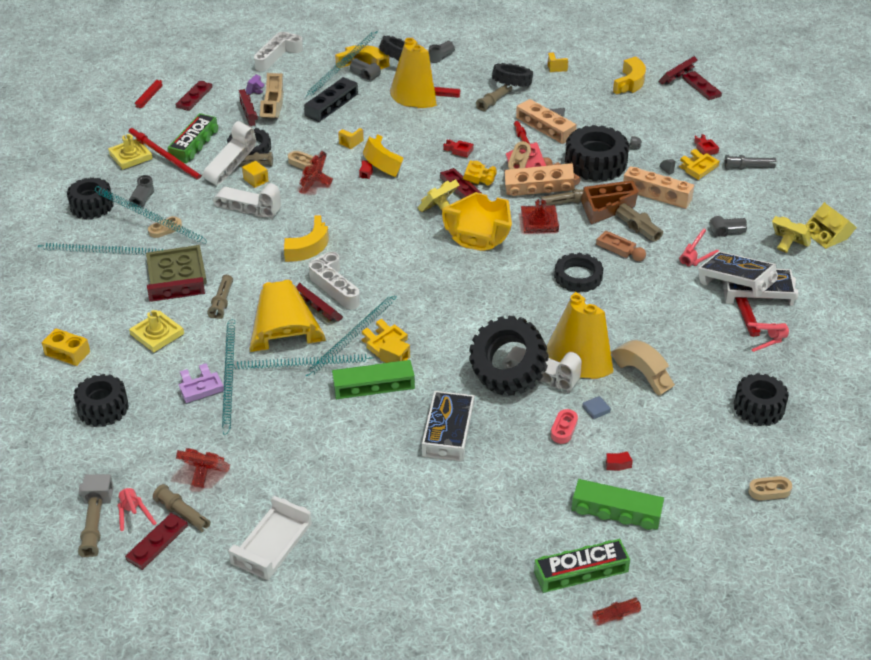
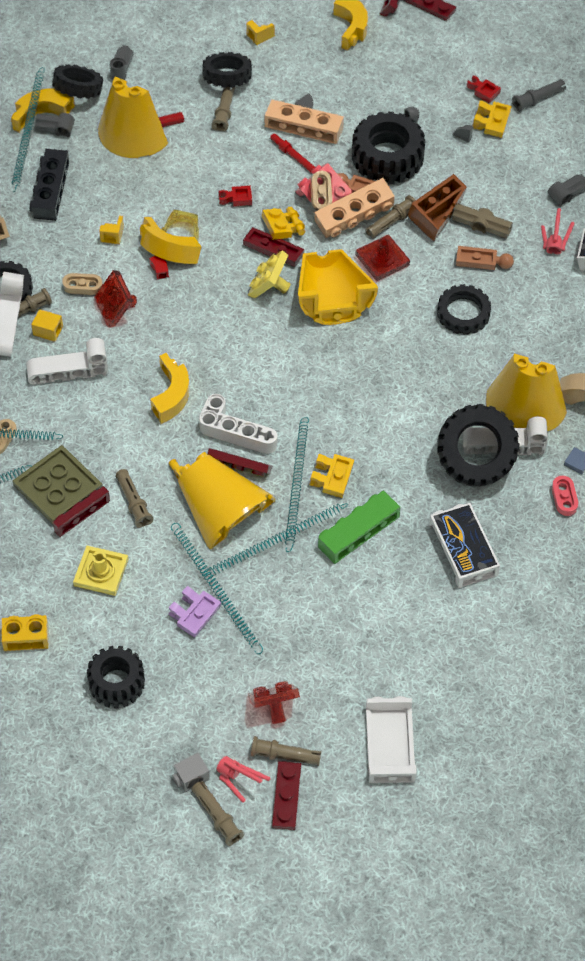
camera: 30 degrees left, 15 degrees up
(394, 350) = (357, 486): yellow panel -> none
(405, 145) = (181, 216): none -> clear yellow helmet
(660, 187) = (475, 167): light nougat brick -> none

